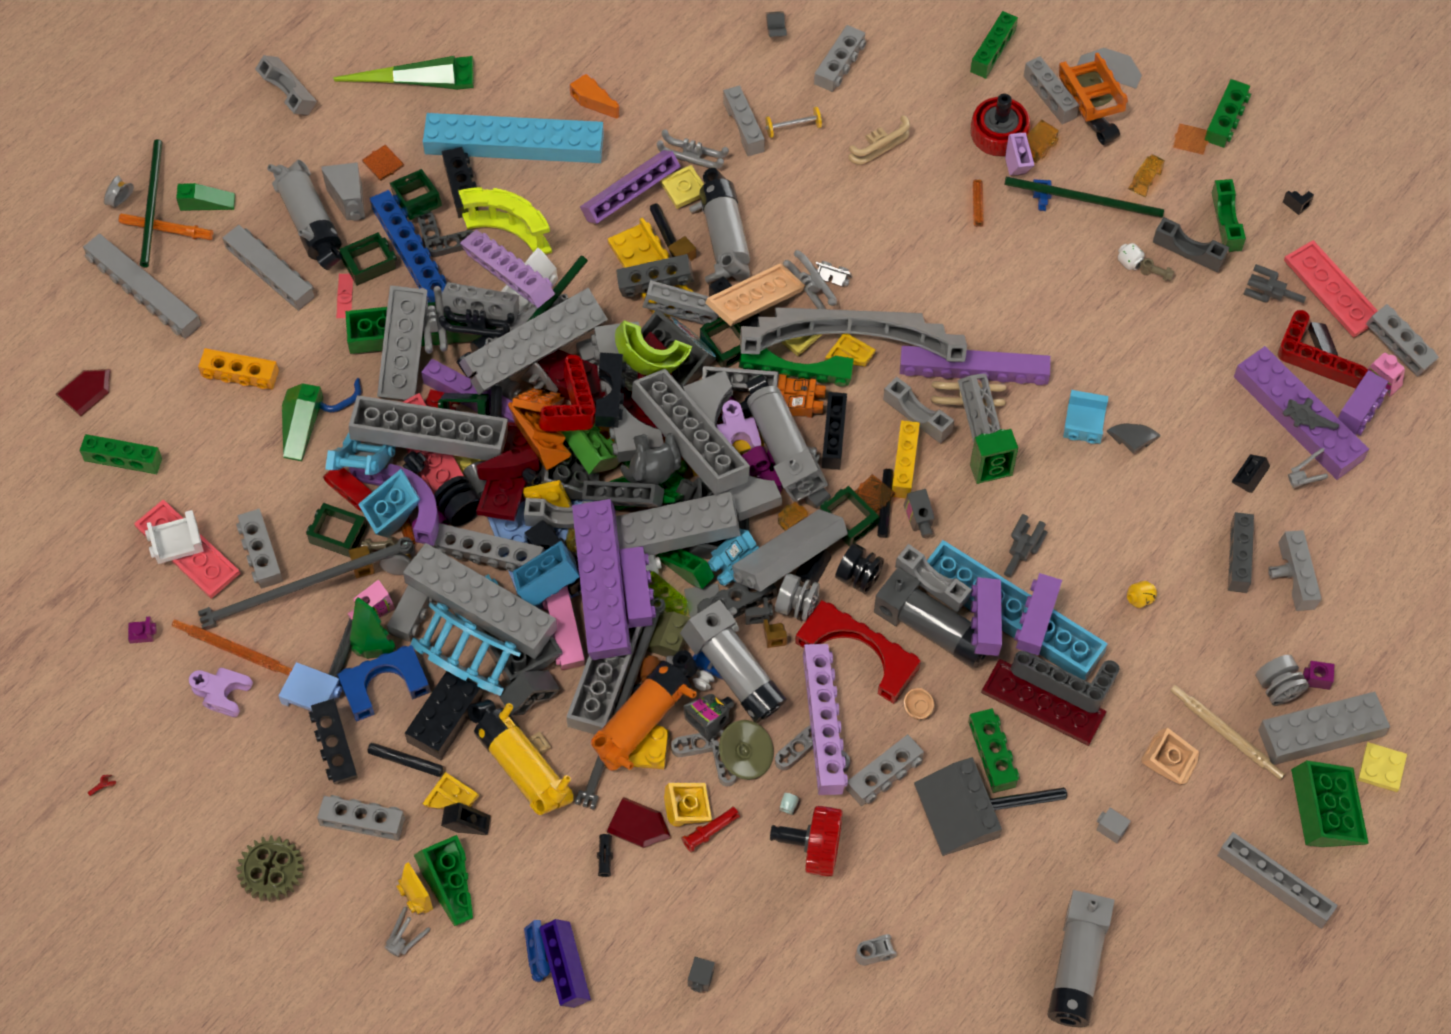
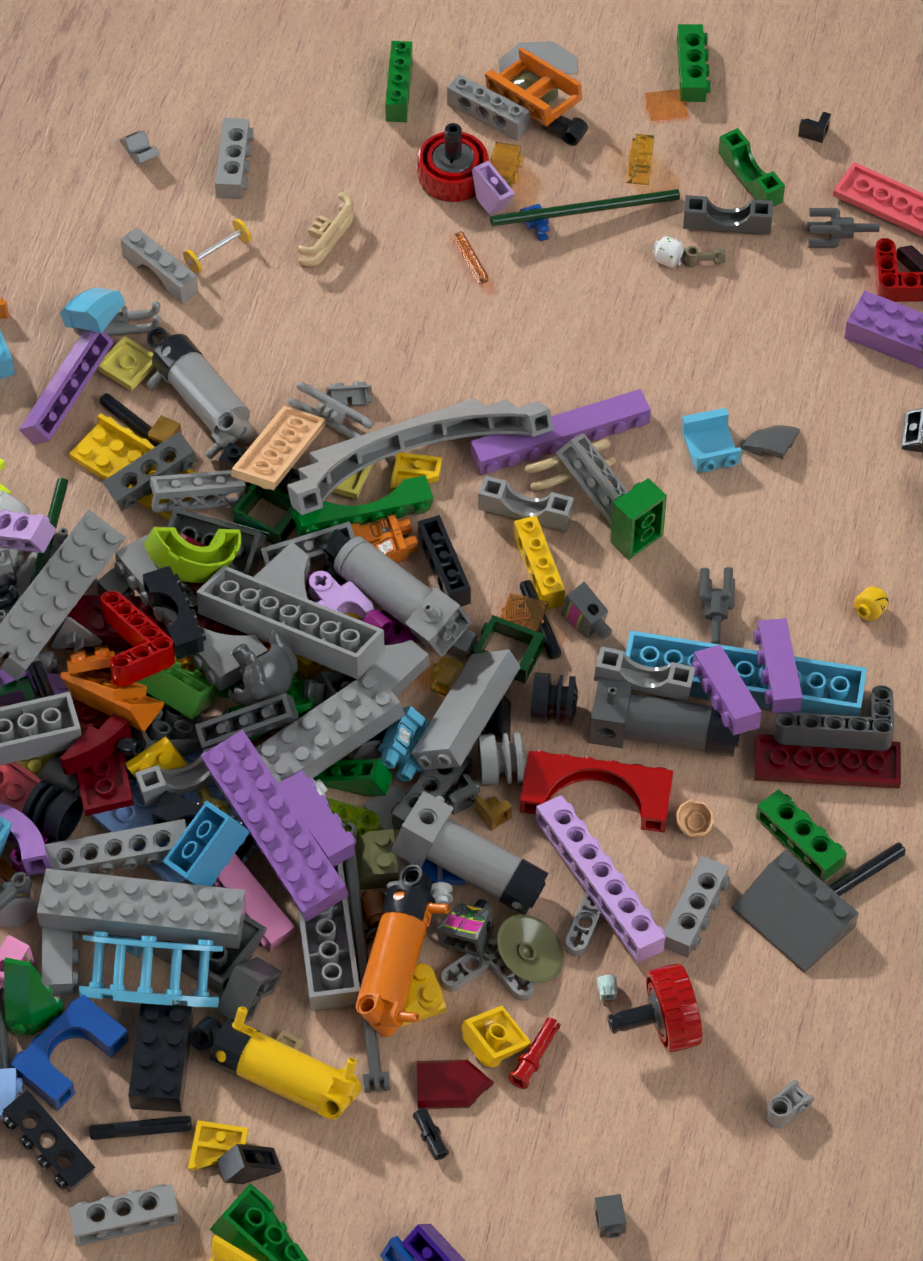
camera: 25 degrees left, 5 degrees down
(674, 136) = (92, 309): none -> medium azure slope

